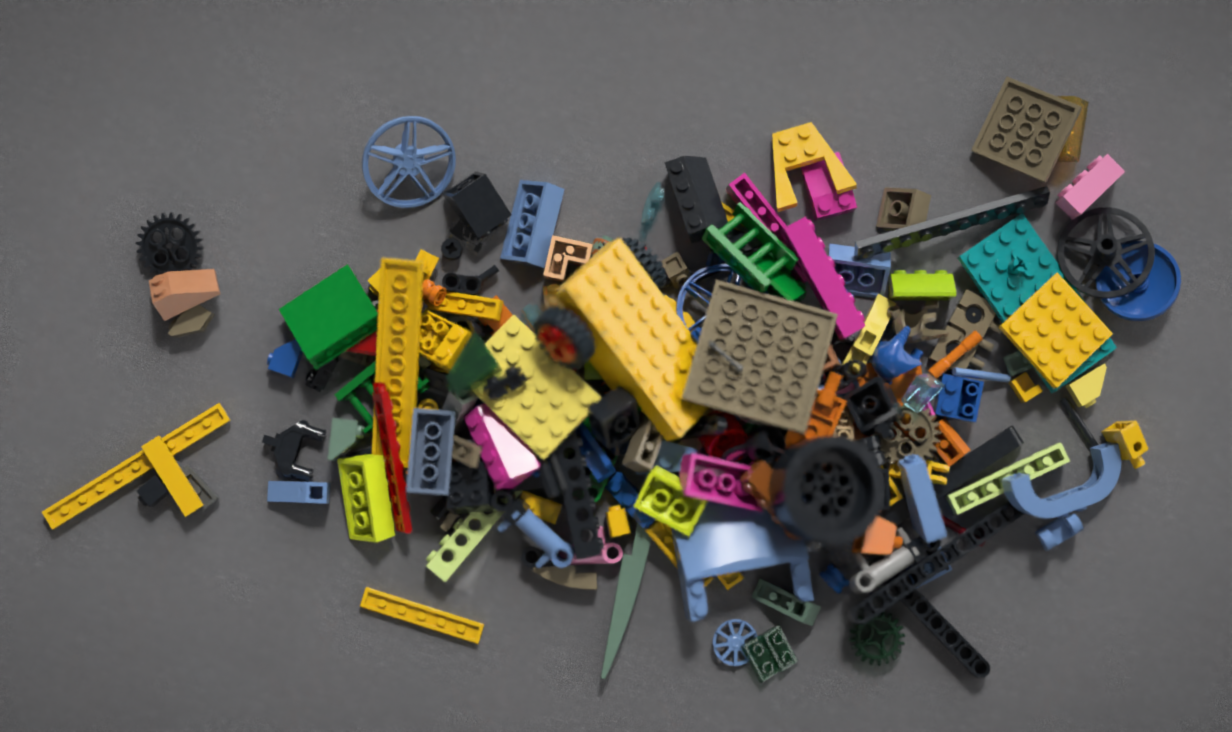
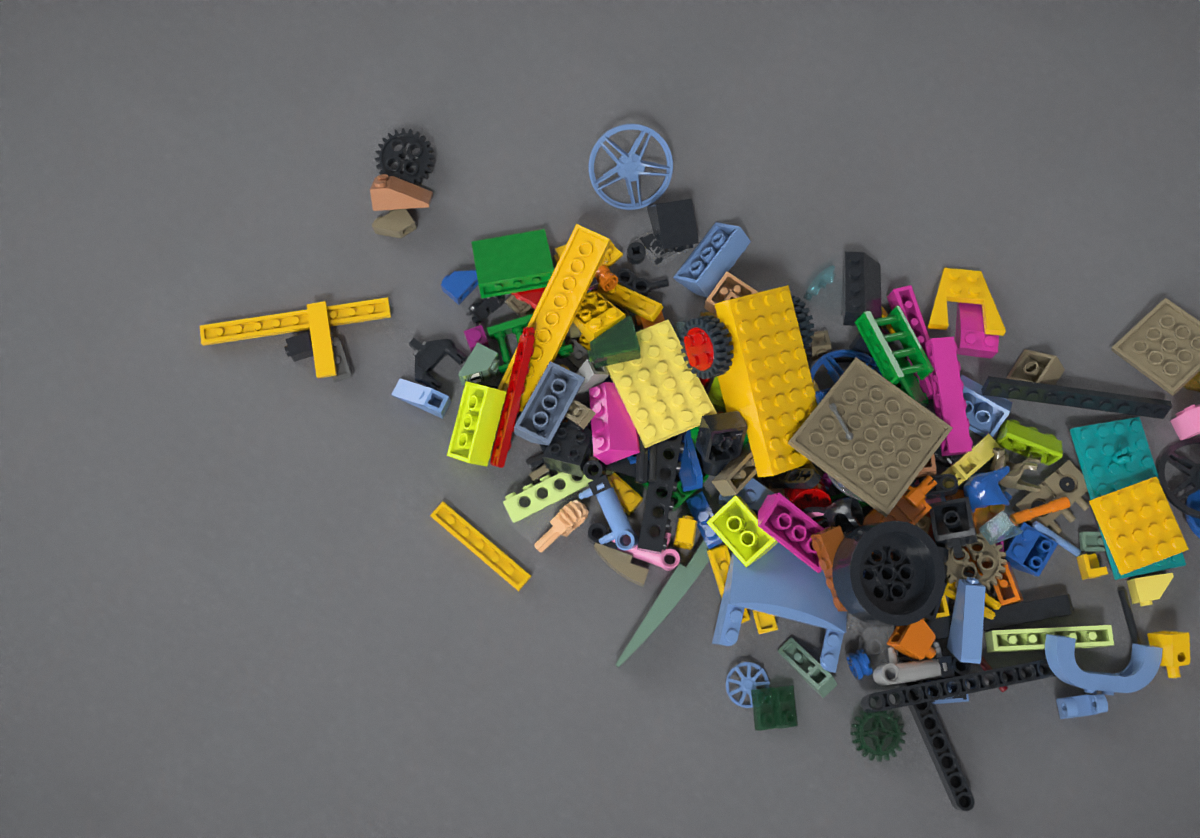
camera: 20 degrees right, 10 degrees down
(328, 409) = (476, 335): none -> magenta brick
(494, 561) = (565, 521): none -> light nougat gear
(497, 385) = (646, 366): black hinge -> none

